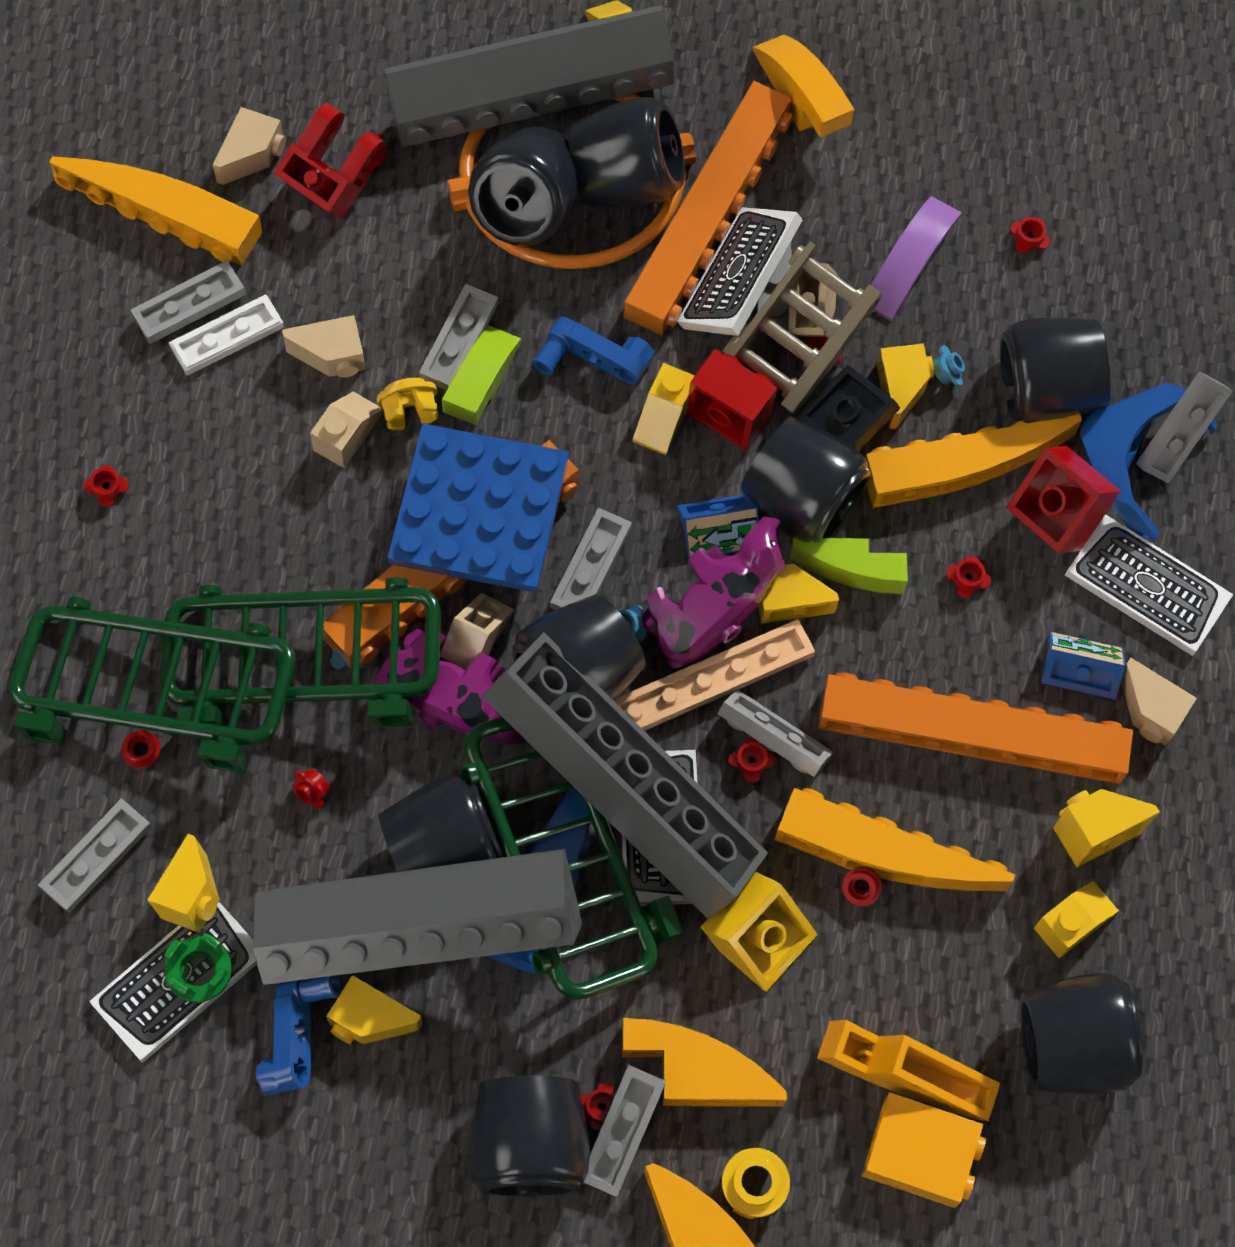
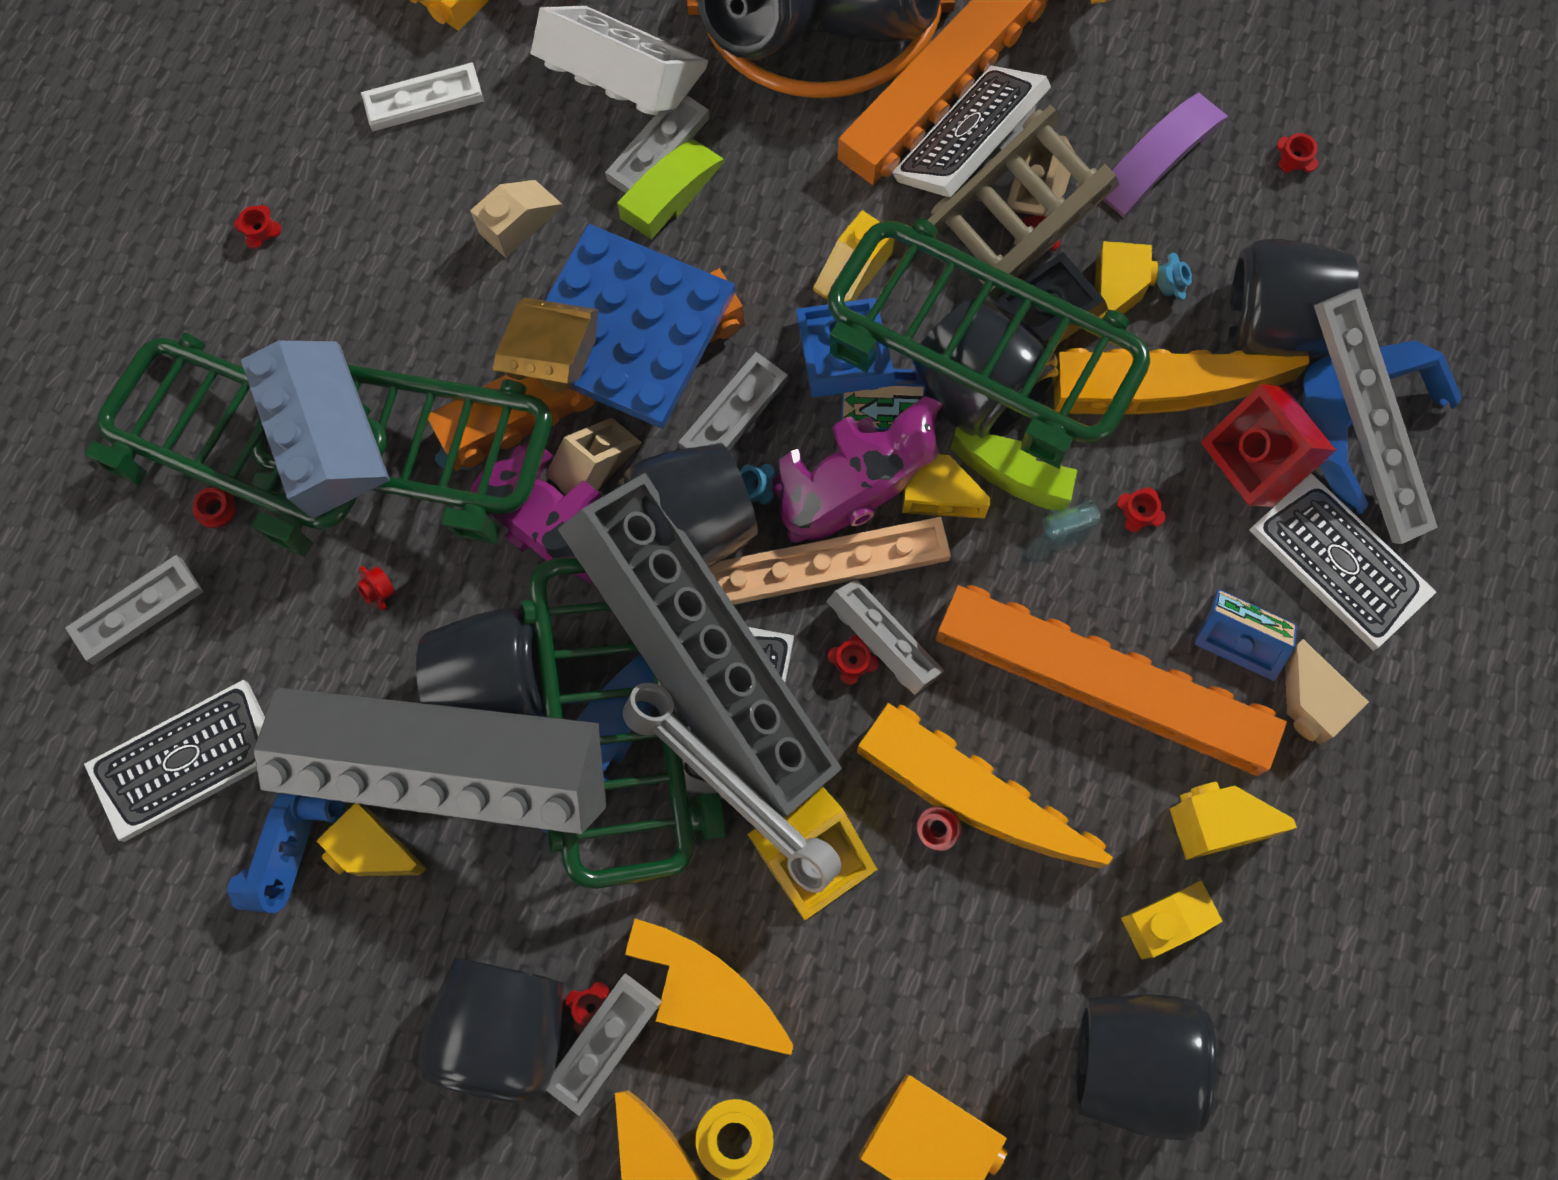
camera: 20 degrees right, 5 degrees up
(182, 952) = (182, 740): green piece -> none
(187, 888) = (215, 664): yellow slope -> none
(188, 302) = (390, 55): light grey plate -> none
(232, 651) = (314, 423): none -> sand blue slope
(327, 346) = (520, 126): tan slope -> none
(402, 265) = (615, 57): none -> white slope
(405, 394) = (580, 192): yellow piece -> none
(419, 537) = (547, 342): none -> pearl gold slope
(622, 362) = (823, 204): blue beam -> none
(677, 487) = (829, 374): none -> blue plate
(681, 884) = (810, 861): none -> light grey piece
(731, 399) = (925, 269): red brick -> none
(879, 525) = (1049, 431): none -> dark green bar
(904, 603) = (1069, 521): none -> clear light blue pin
(909, 1069) = (940, 1051): light orange slope -> none
(1147, 455) = (1375, 416): none -> light grey plate
(1184, 427) = (1438, 382): light grey plate -> none

